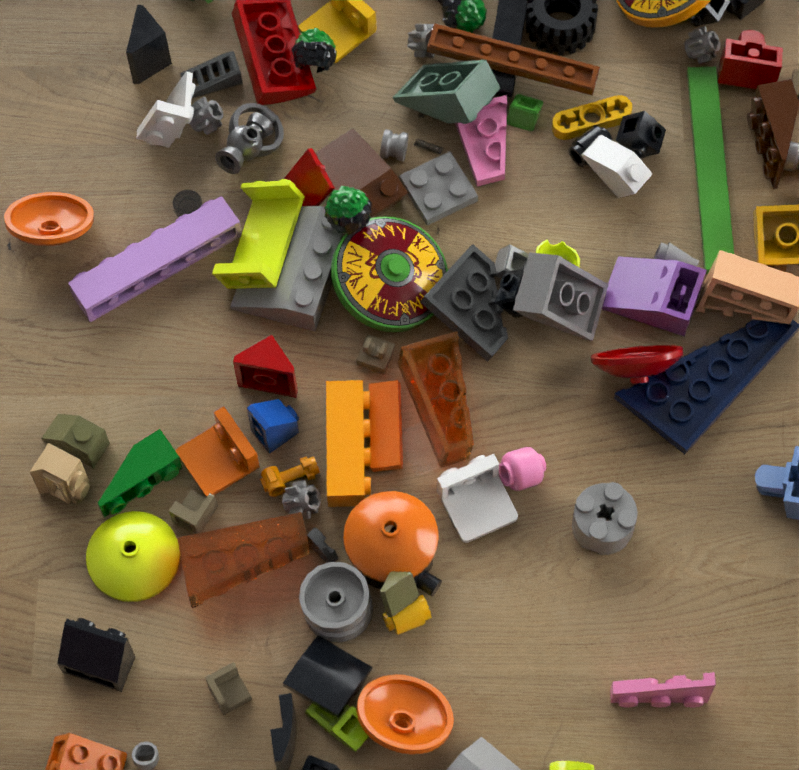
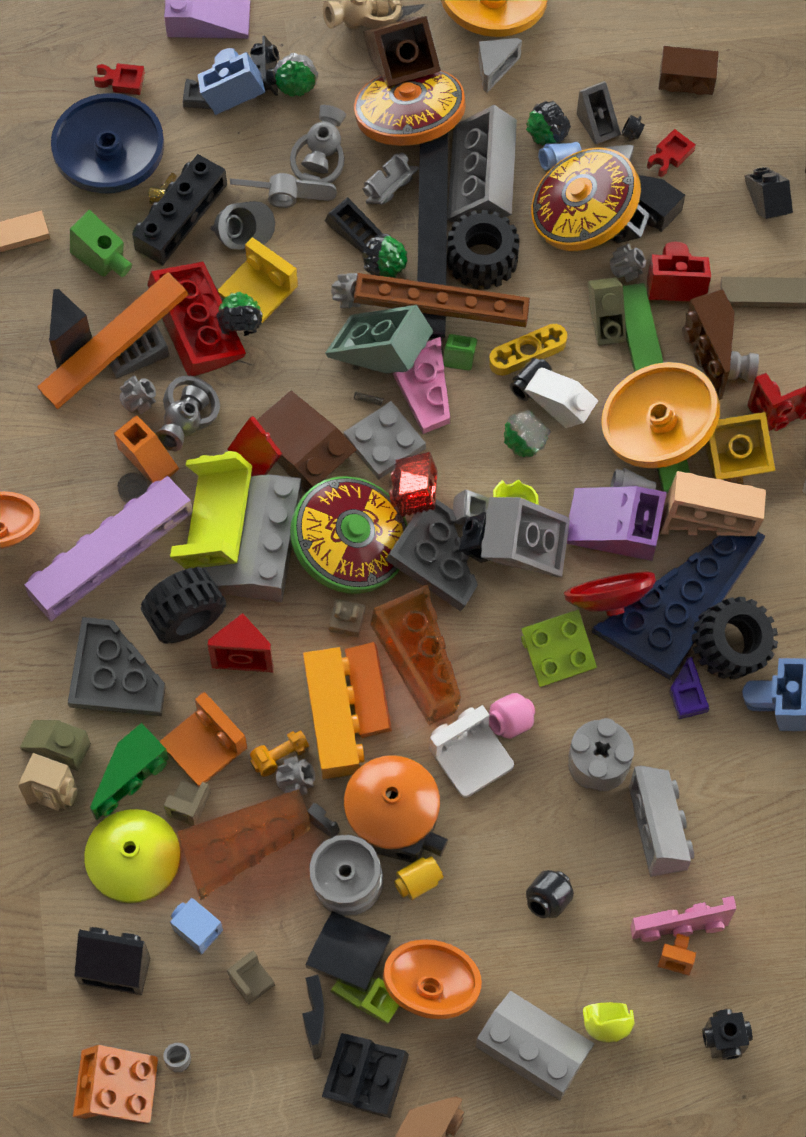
camera: 10 degrees left, 0 degrees up
(140, 378) = (112, 673): none -> dark grey plate
(168, 118) = (103, 401): white bracket -> none
(183, 631) = (195, 925): none -> light blue brick
(191, 58) = (112, 340): none -> orange tile
(204, 169) = (145, 450): none -> orange slope
(216, 321) = (183, 605): none -> black tyre
(272, 423) = (255, 702): blue slope -> none
(348, 210) = (300, 476): piece -> none
(394, 145) = (334, 402): light grey wheel -> none
(398, 592) = (408, 857): olive slope -> none
(459, 232) = (414, 484): none -> clear red brick
(533, 647) = (549, 894): none -> black head
(576, 198) = (525, 434): none -> clear piece
(578, 409) = (558, 648): none -> lime hinge
(641, 134) = (580, 361): black brick -> none
(652, 726) = (677, 957): none -> orange tile
(654, 590) = (660, 821): none -> light grey slope
(675, 89) = (607, 310): none -> olive slope
(701, 469) = (688, 692): none -> dark purple tile
(712, 195) = (660, 415): none -> light orange dish
(775, 412) = (752, 624): none -> black tyre

